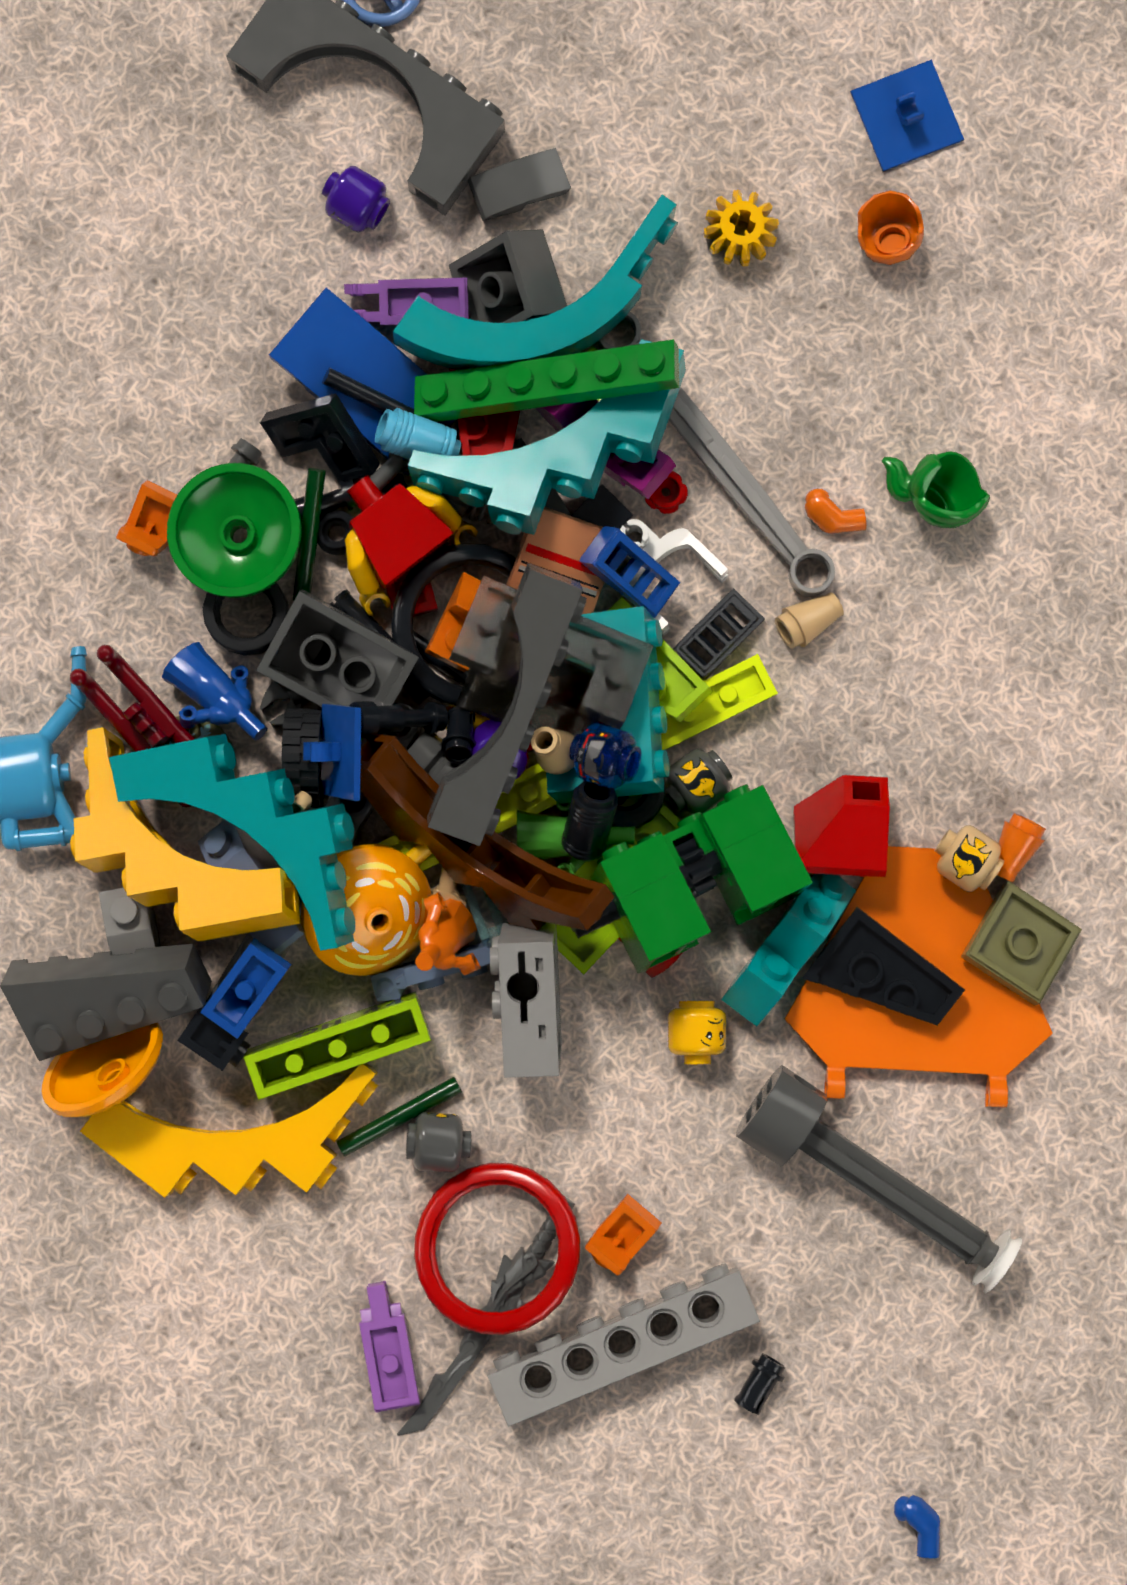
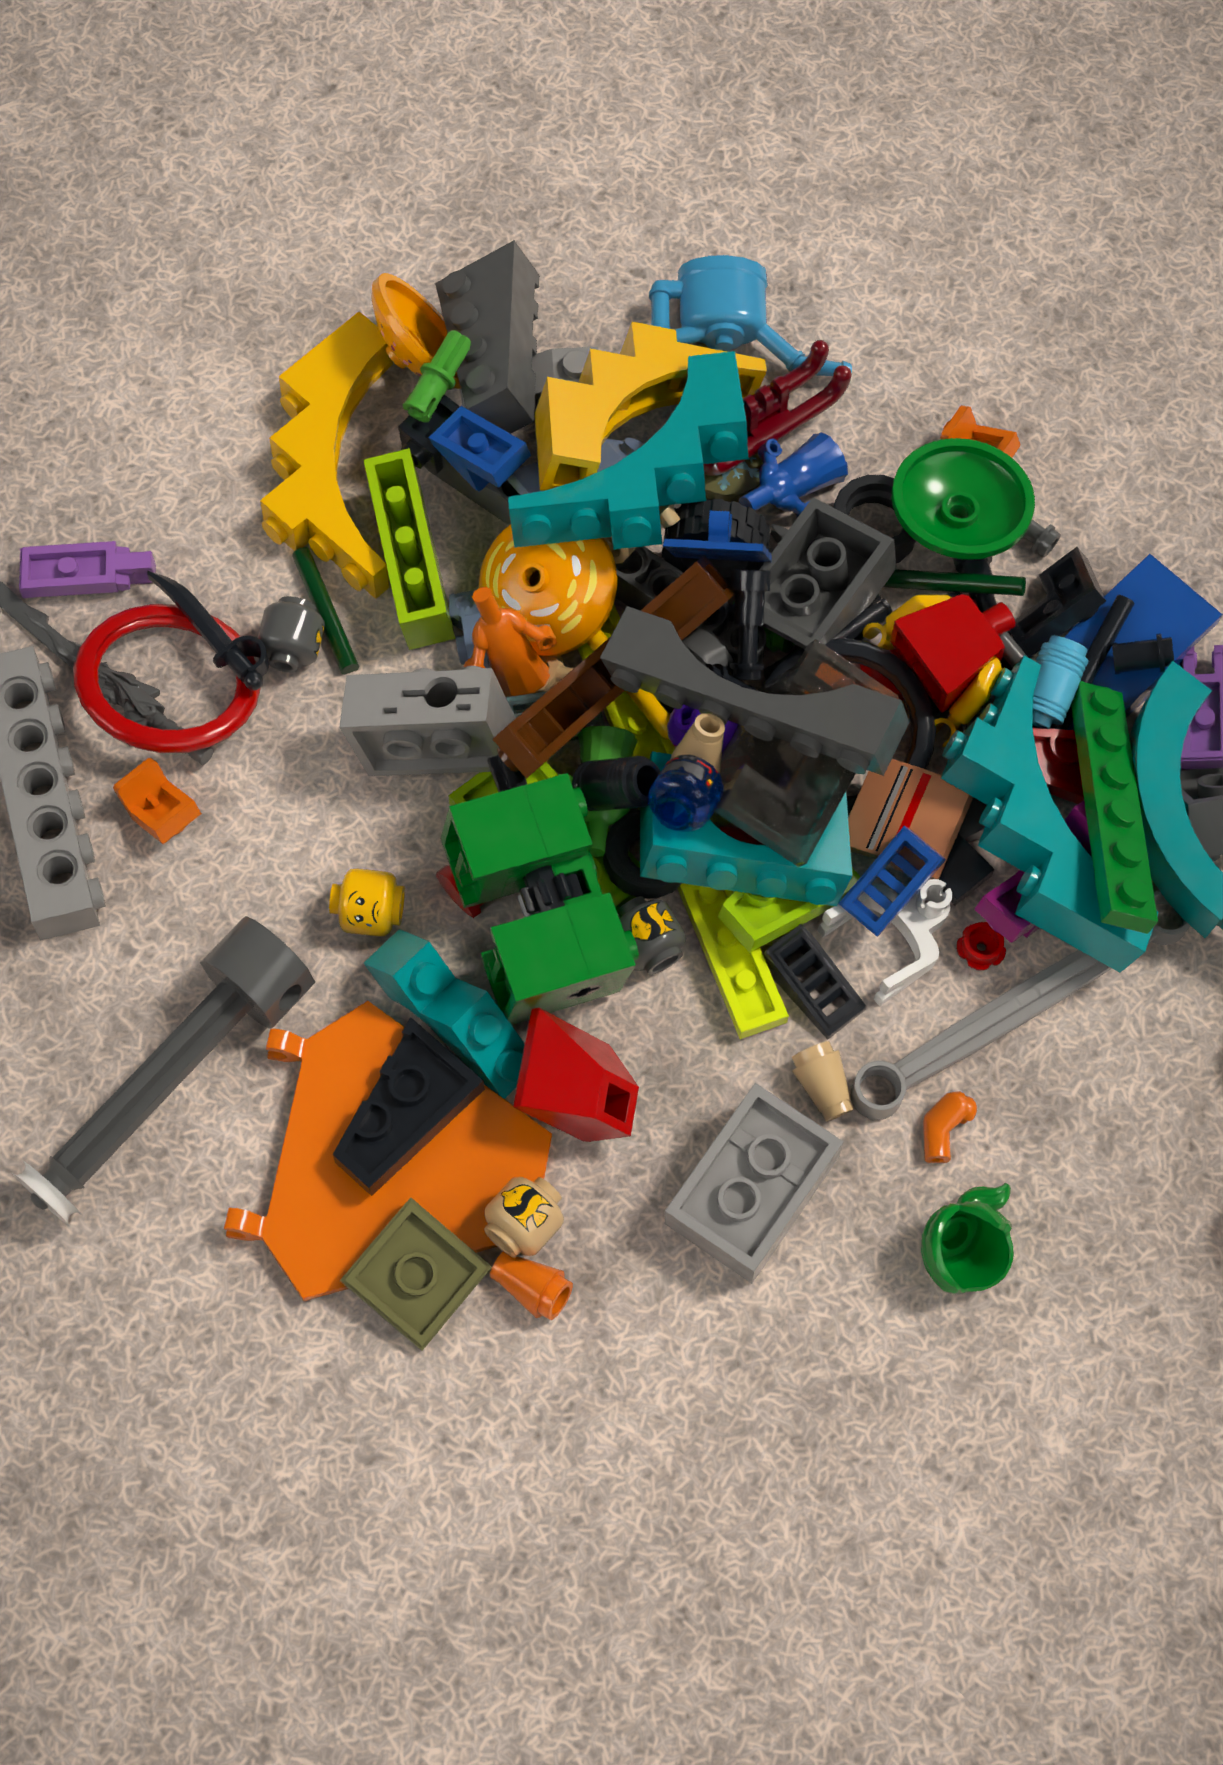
camera: 95 degrees right, 20 degrees down
(172, 1038) = (437, 376): none -> bright green axle
(380, 358) = (1143, 654): none -> black pin
(467, 1194) = (228, 652): none -> black sword
(914, 670) = (753, 1182): none -> light grey piece

